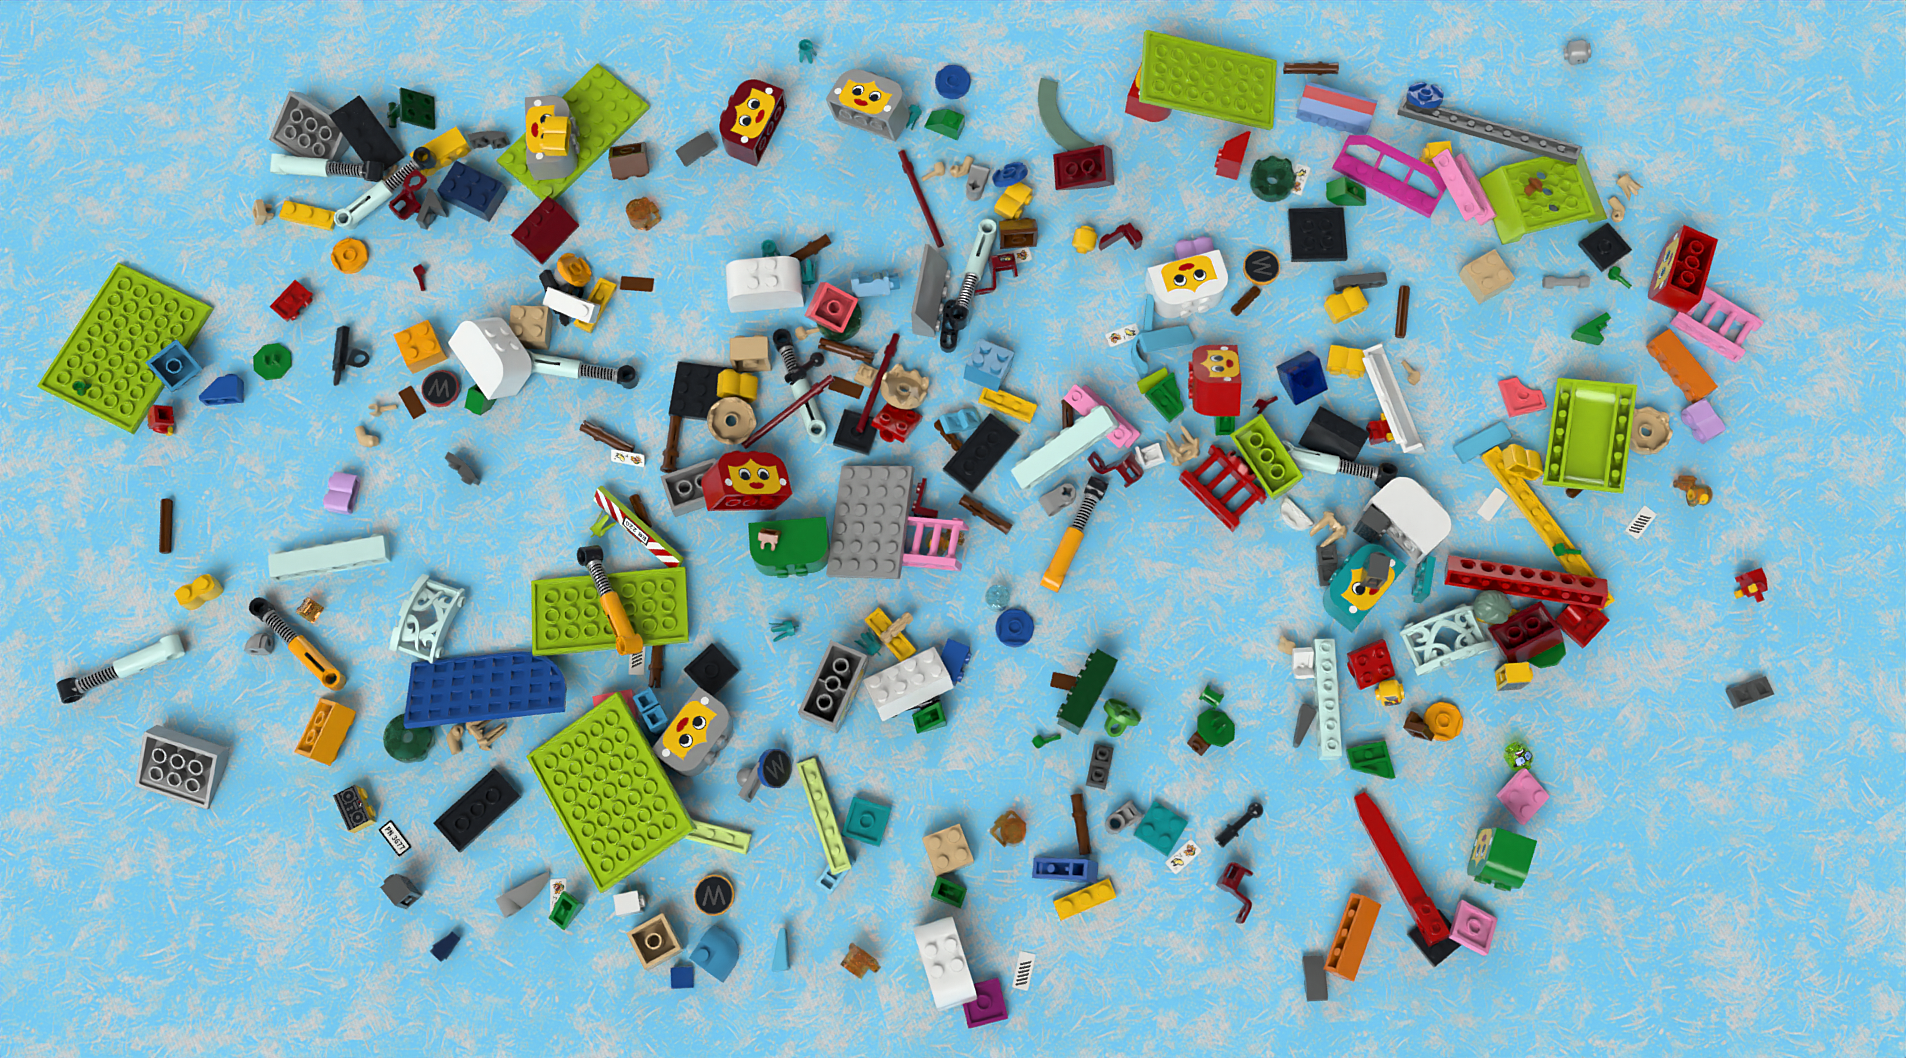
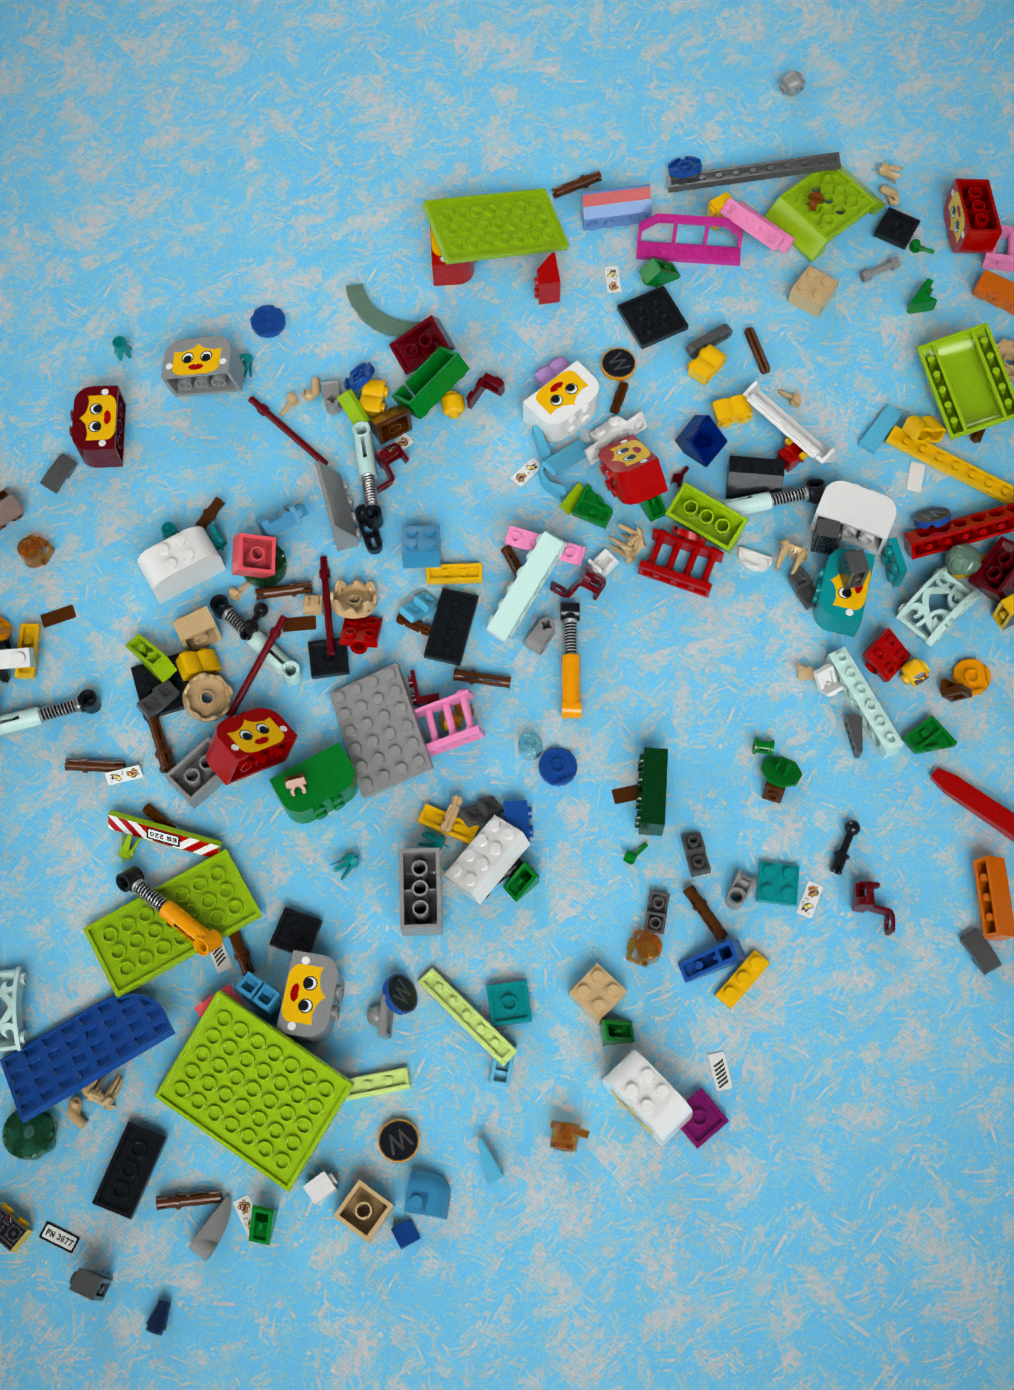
camera: 25 degrees left, 5 degrees down
(521, 861) = (188, 1199): none -> reddish brown pin
(688, 403) = (158, 700): none -> dark grey slope
(698, 361) = (151, 657): none -> lime slope
(924, 638) = (481, 812): none -> dark grey slope
(946, 123) = (279, 357): green slope -> none
(989, 202) = (352, 407): none -> lime tile
(1037, 802) = (656, 912): none -> dark grey slope
(1073, 210) = (431, 382): none -> green piece
(1121, 715) = (692, 799): bright green tile -> none
(1222, 333) = (613, 431): none -> white bracket
(1276, 168) = (594, 278): clear green plate -> none
(1484, 551) = (932, 516): none -> tile
(1520, 399) = (892, 380): coral tile -> none
(1559, 550) = (993, 487): green hand -> none

